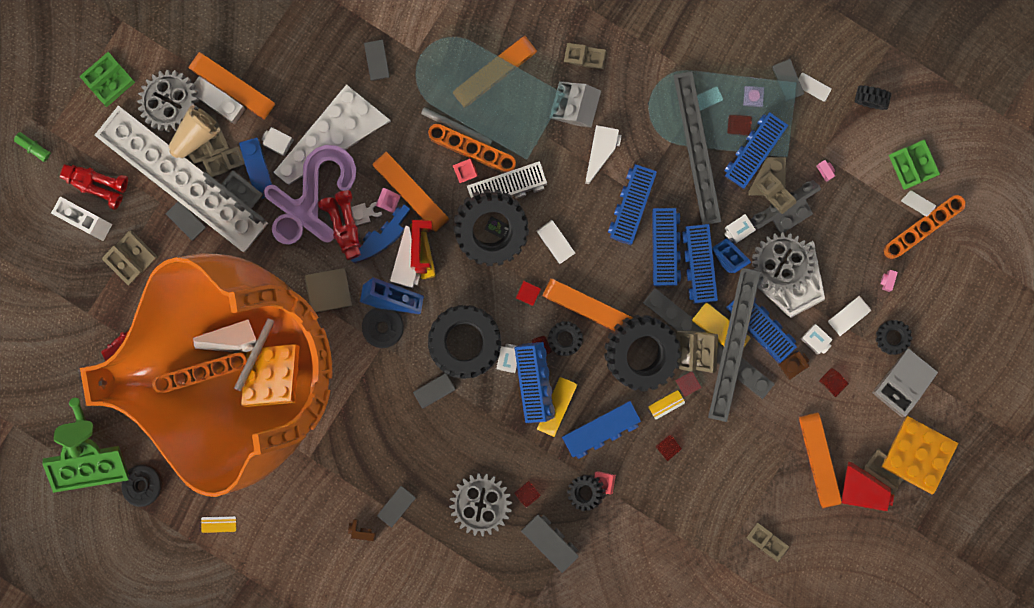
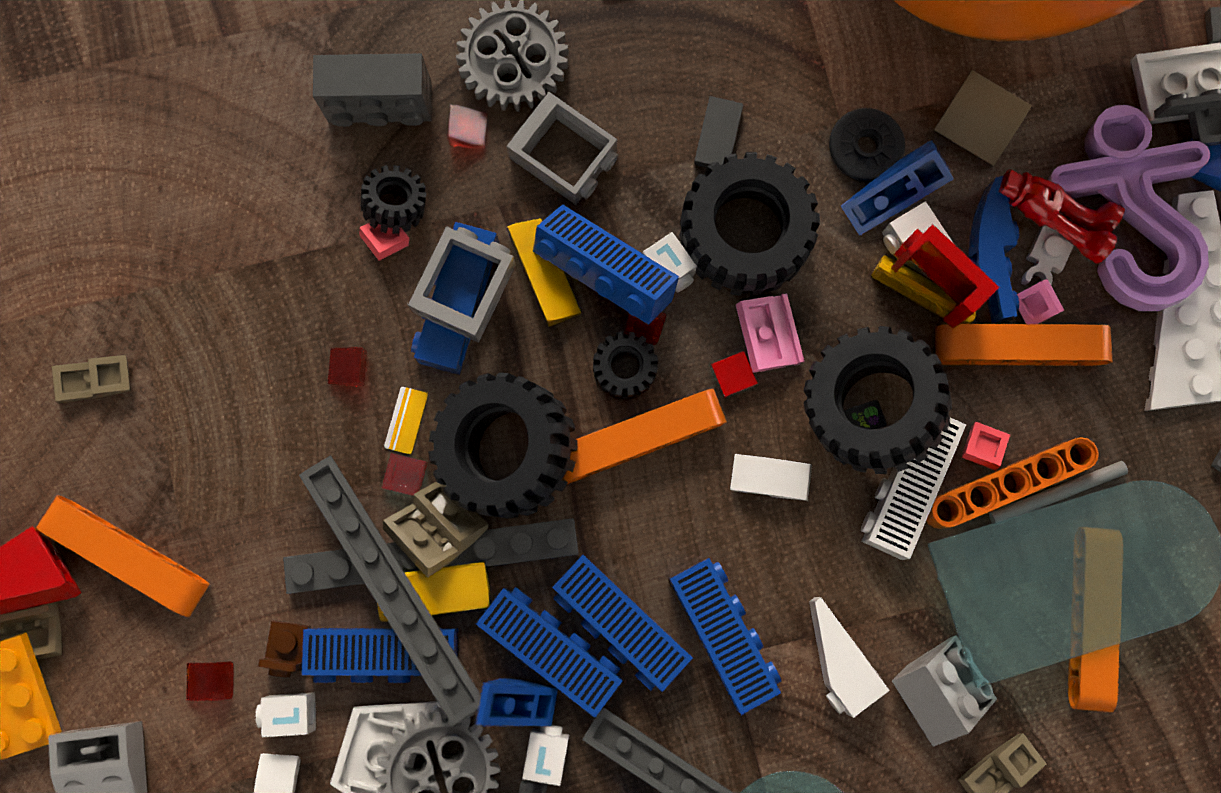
camera: 130 degrees right, 5 degrees down
(487, 425) = (536, 127): none -> light grey window
(498, 294) = (769, 333): none -> bright pink plate
(577, 442) = (447, 317): none -> light grey window

